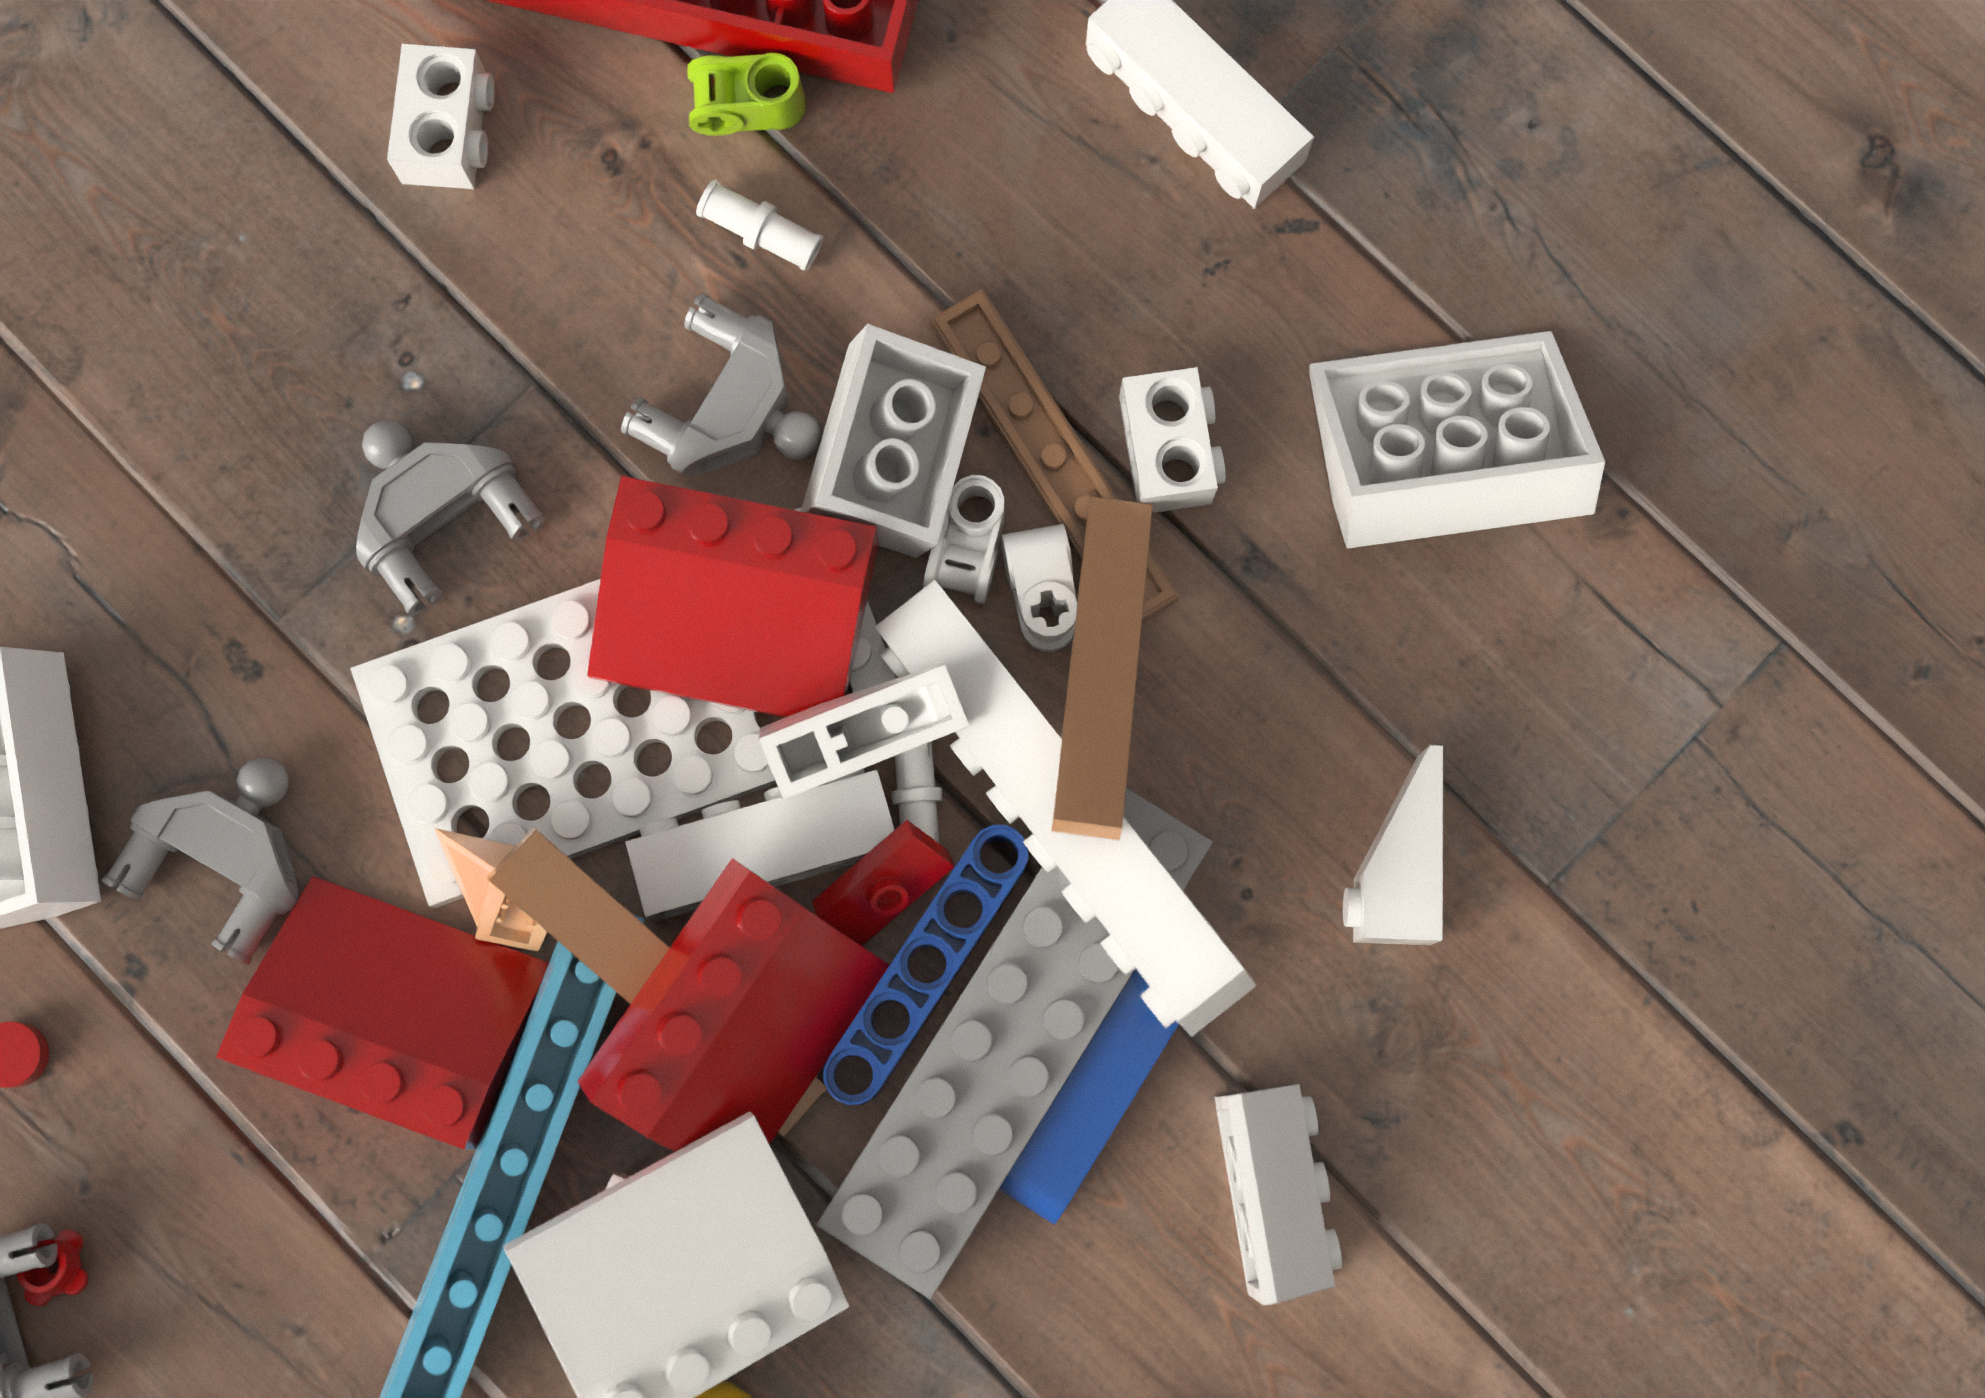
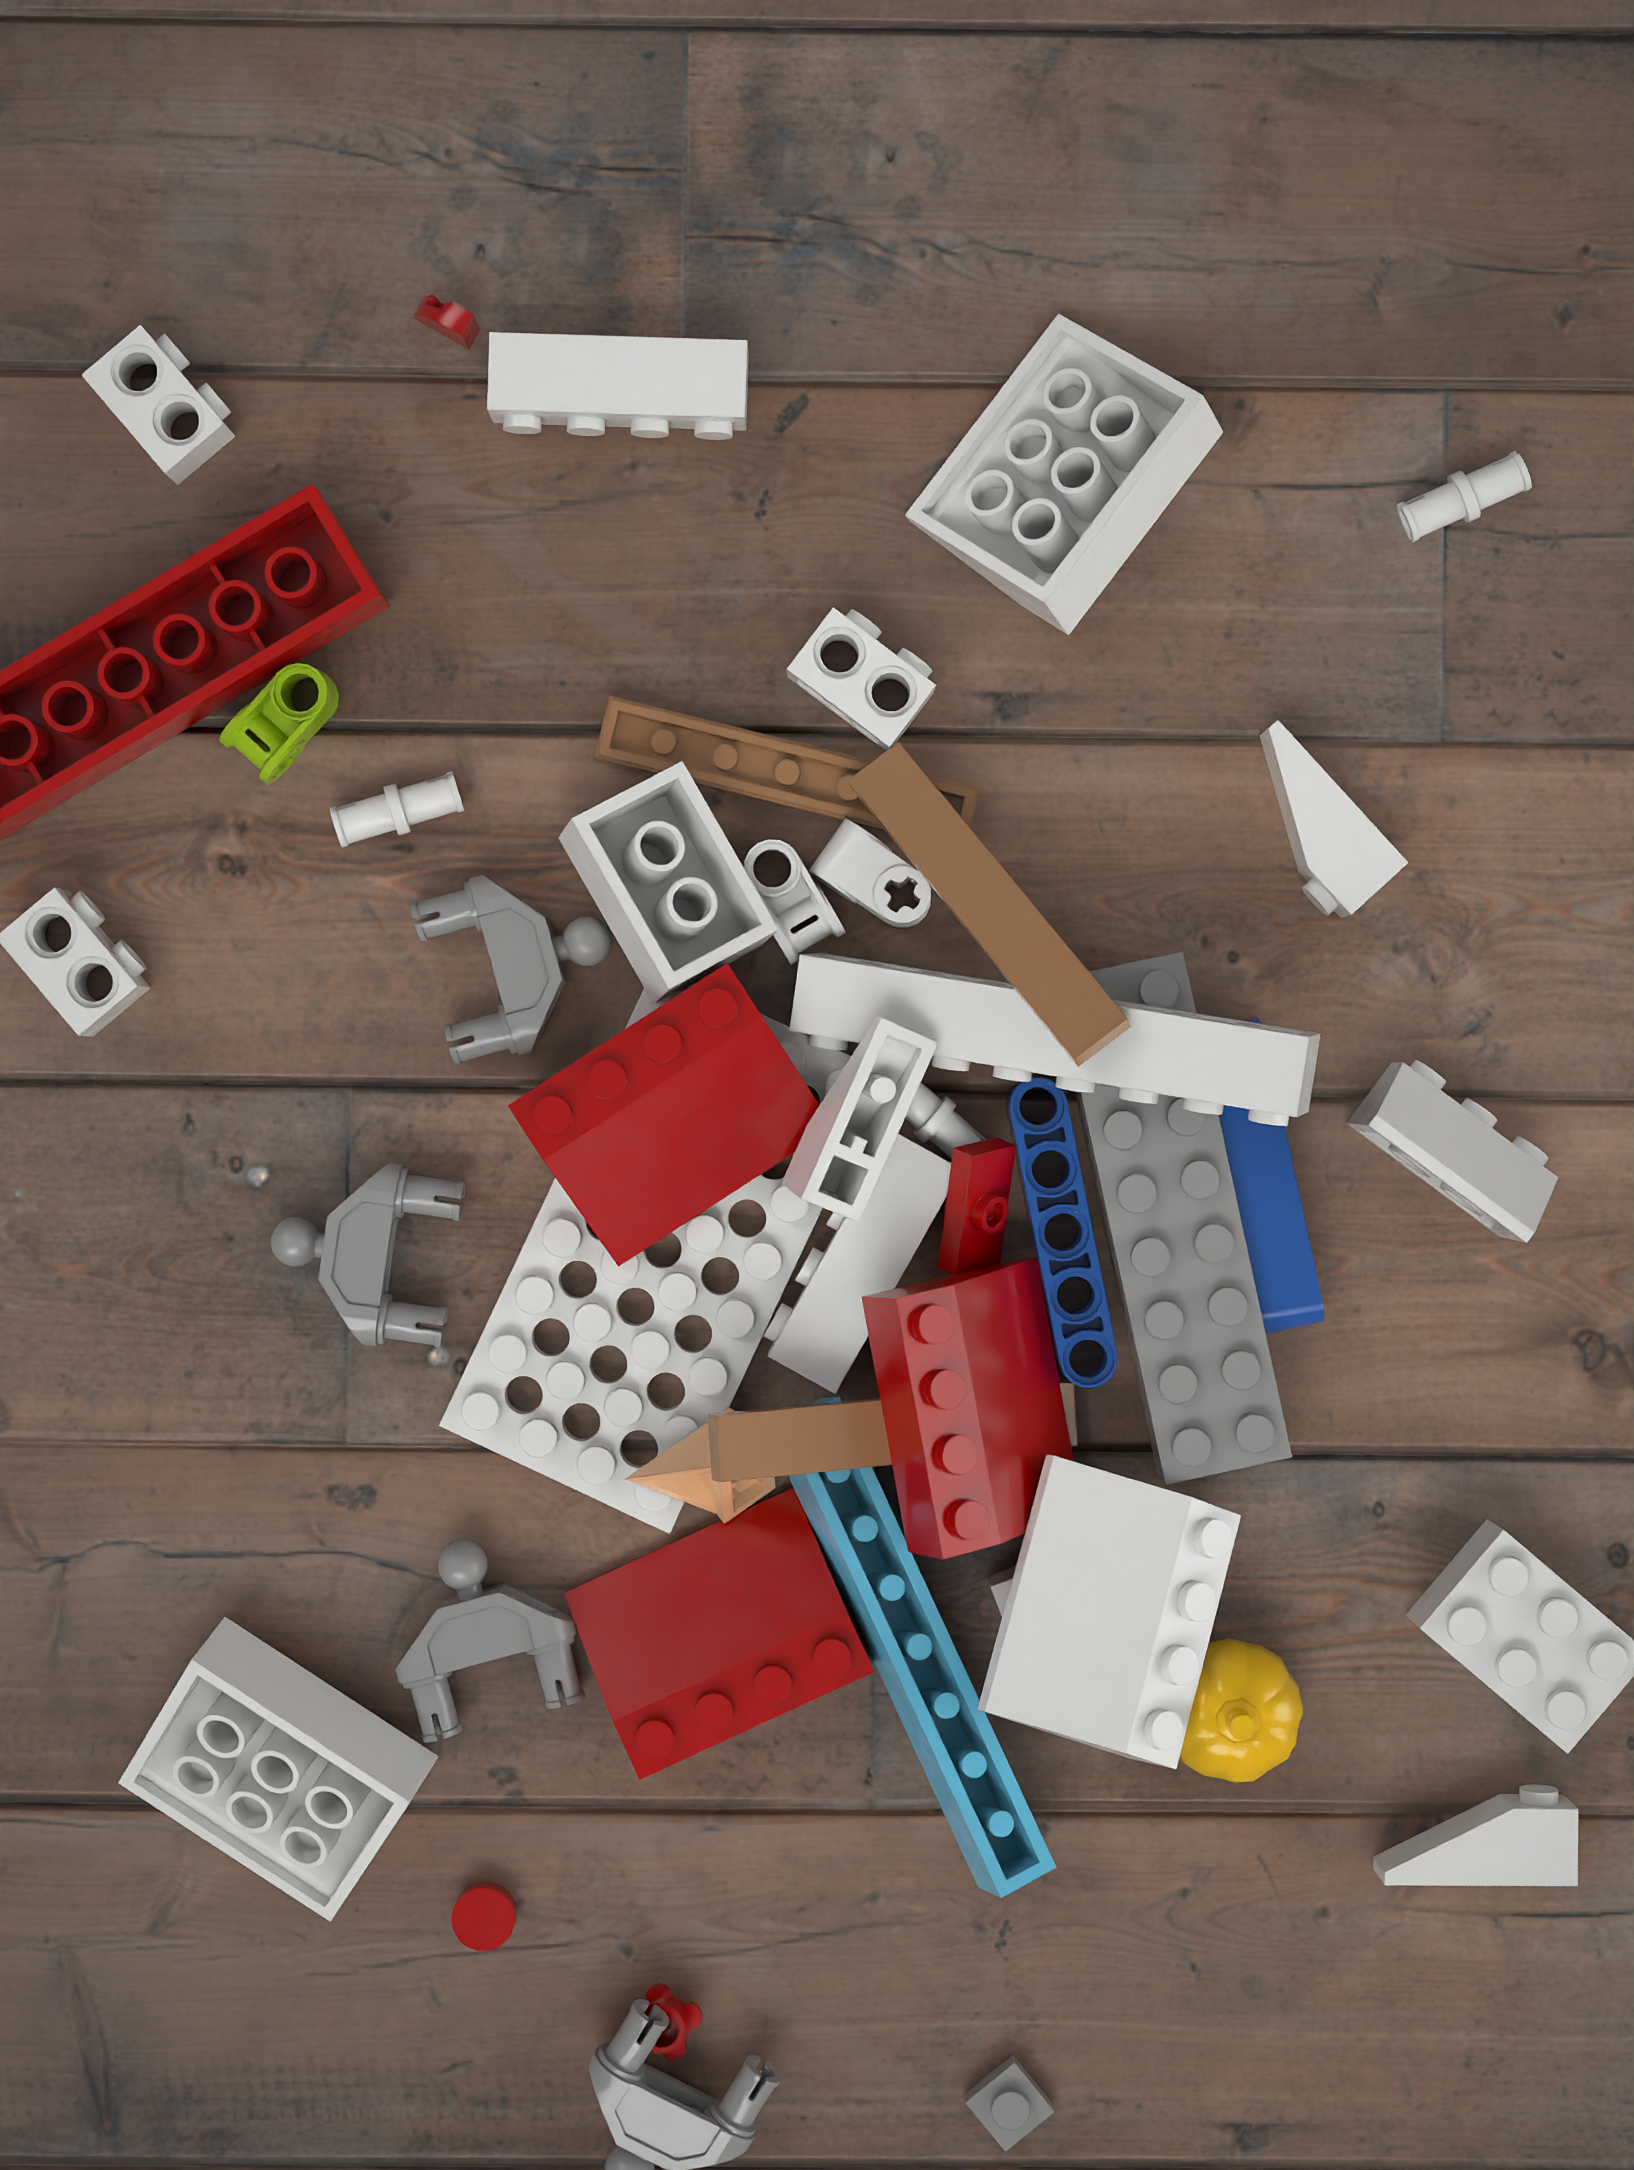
camera: 45 degrees left, 10 degrees up
(1730, 724) = (1464, 496): none -> white pin

